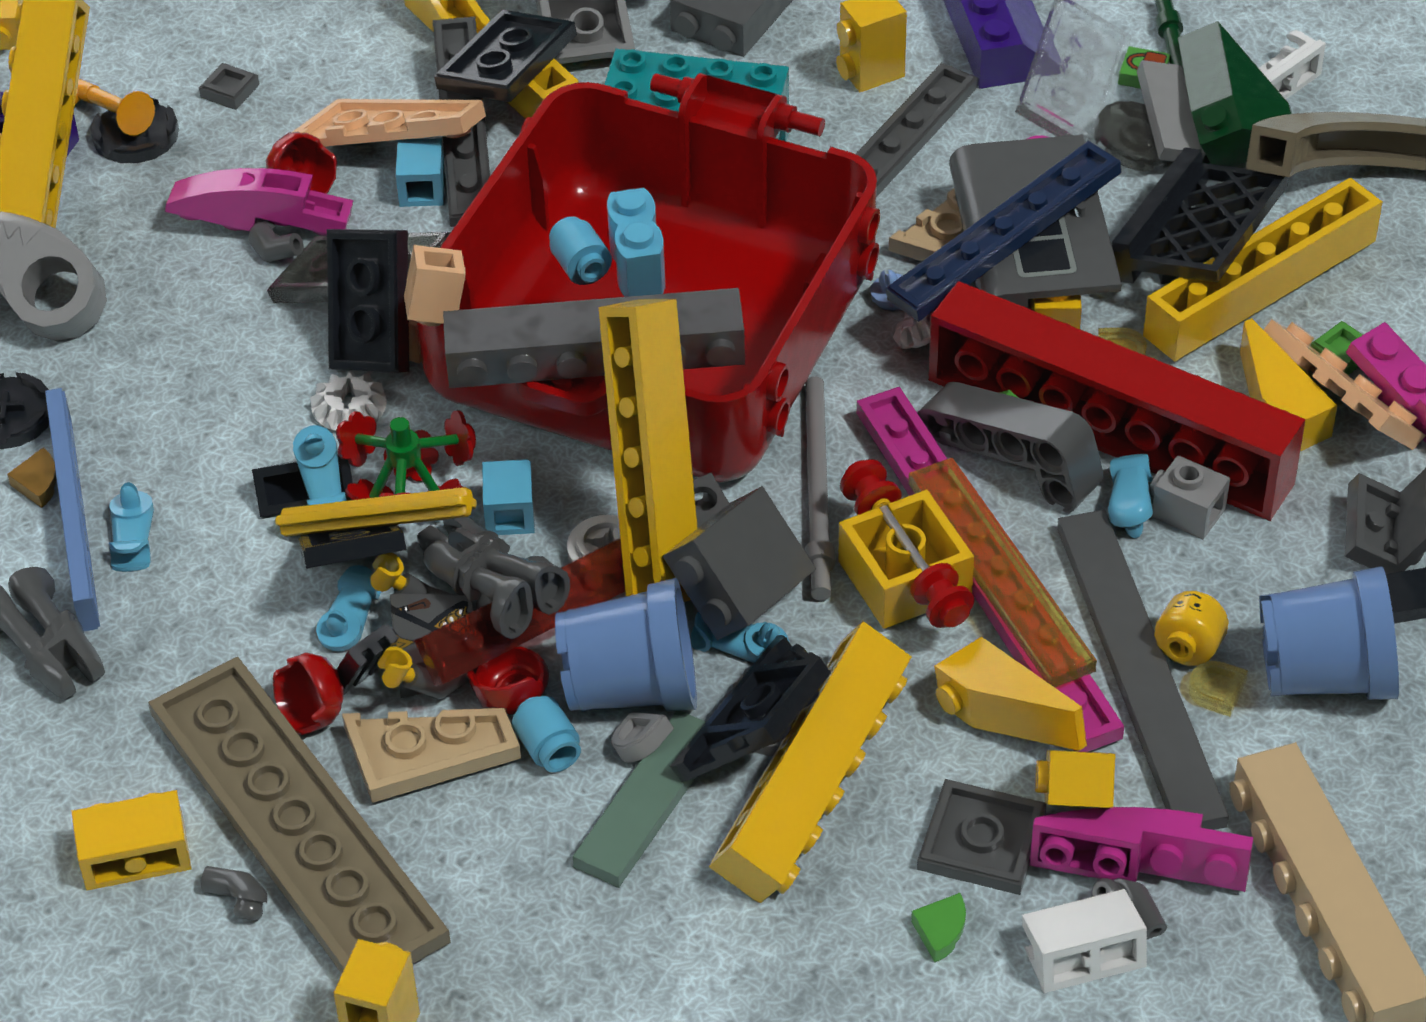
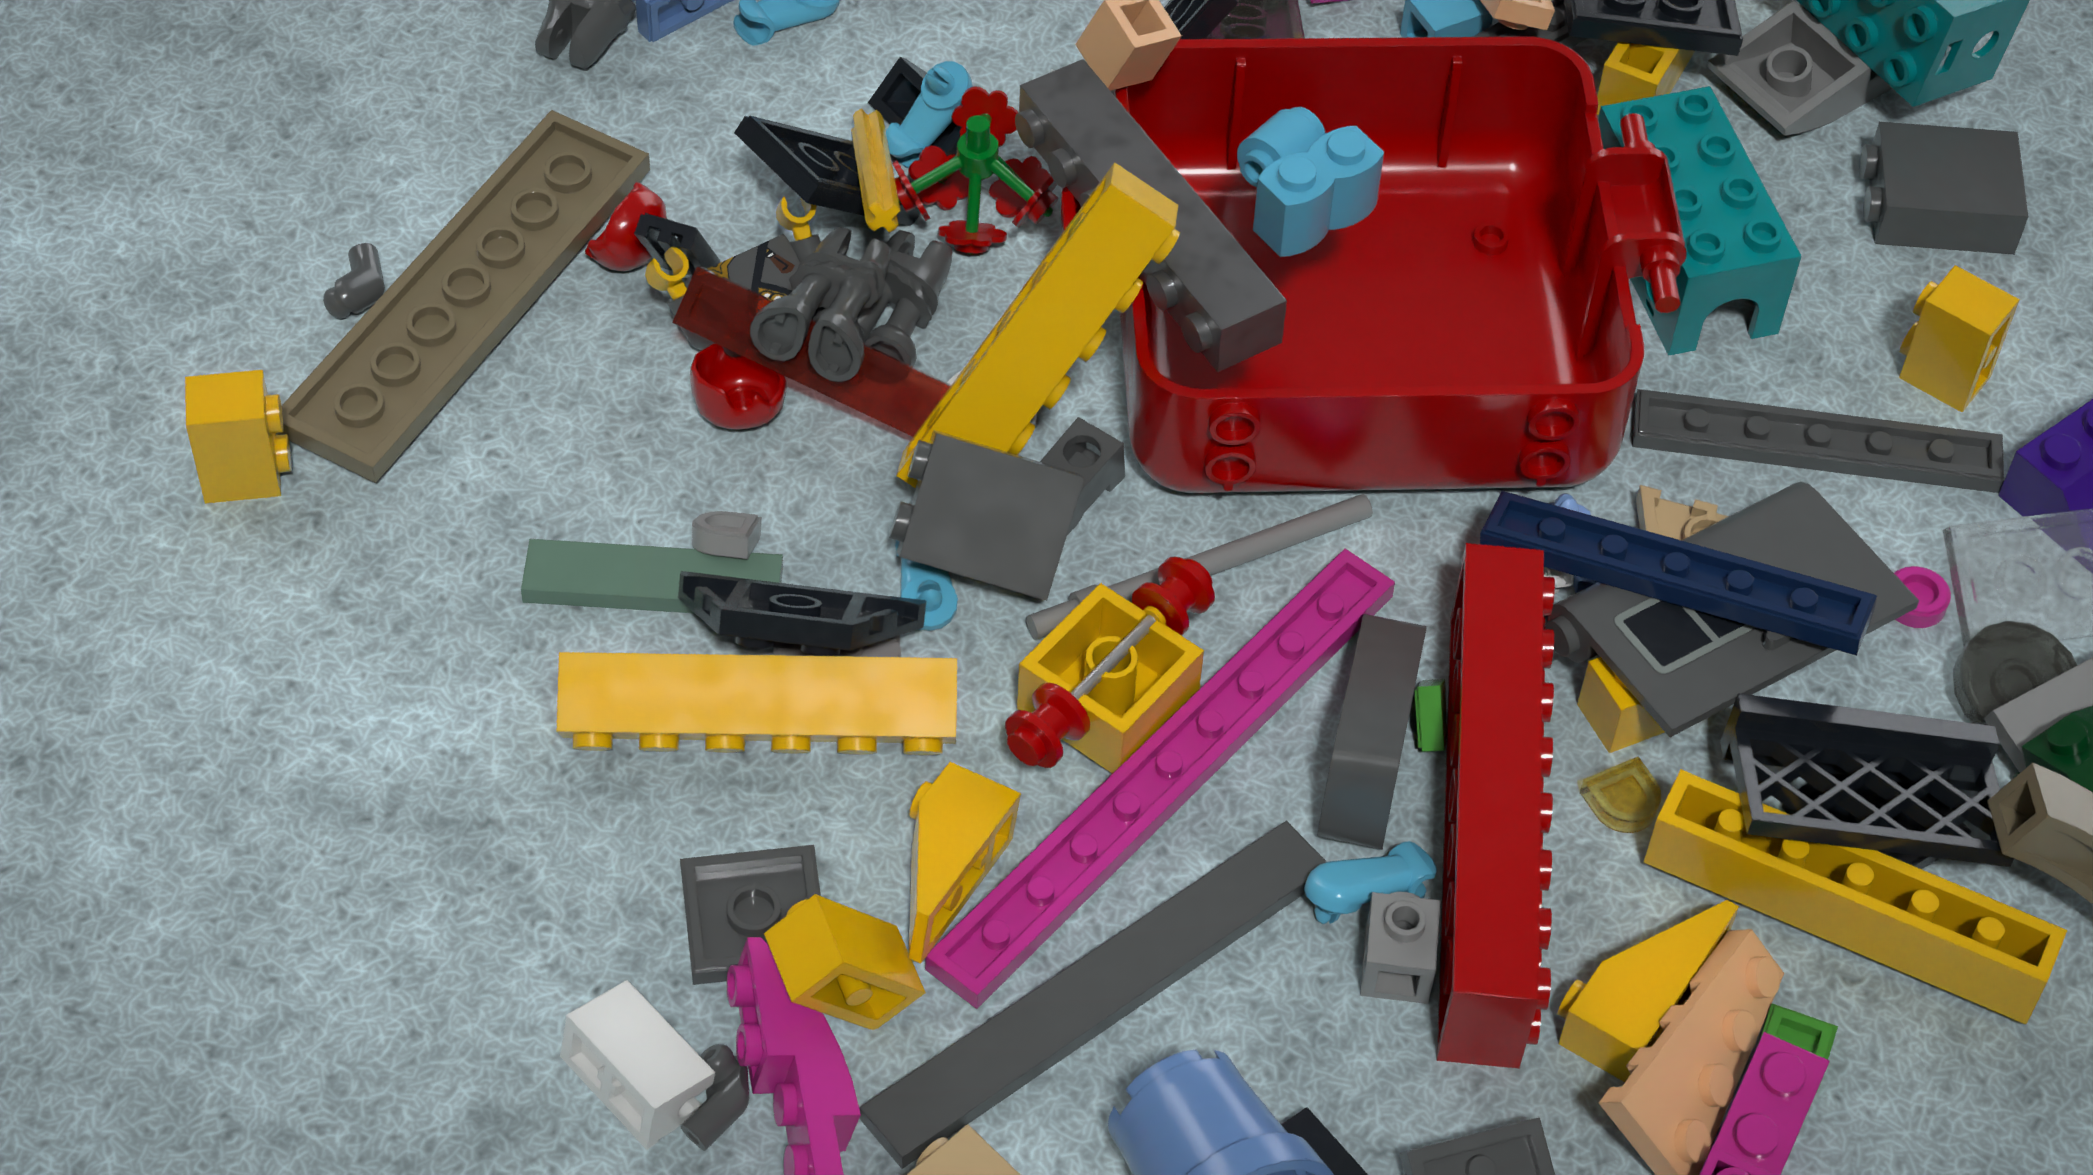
camera: 60 degrees right, 5 degrees up
(131, 840) = (373, 171): yellow brick -> none
(346, 618) = (749, 225): medium azure piece -> none
(418, 752) = (612, 357): tan wing -> none
(508, 497) = (990, 280): medium azure panel -> none
(547, 733) = (683, 450): medium azure brick -> none
(628, 652) = (811, 472): medium blue piece -> none
(940, 925) = (602, 916): bright green tile -> none
(1007, 577) = (1143, 784): clear yellow tile -> none
(1191, 628) = (1170, 1013): yellow head -> none
(1217, 686) = (1105, 1080): clear yellow tile -> none

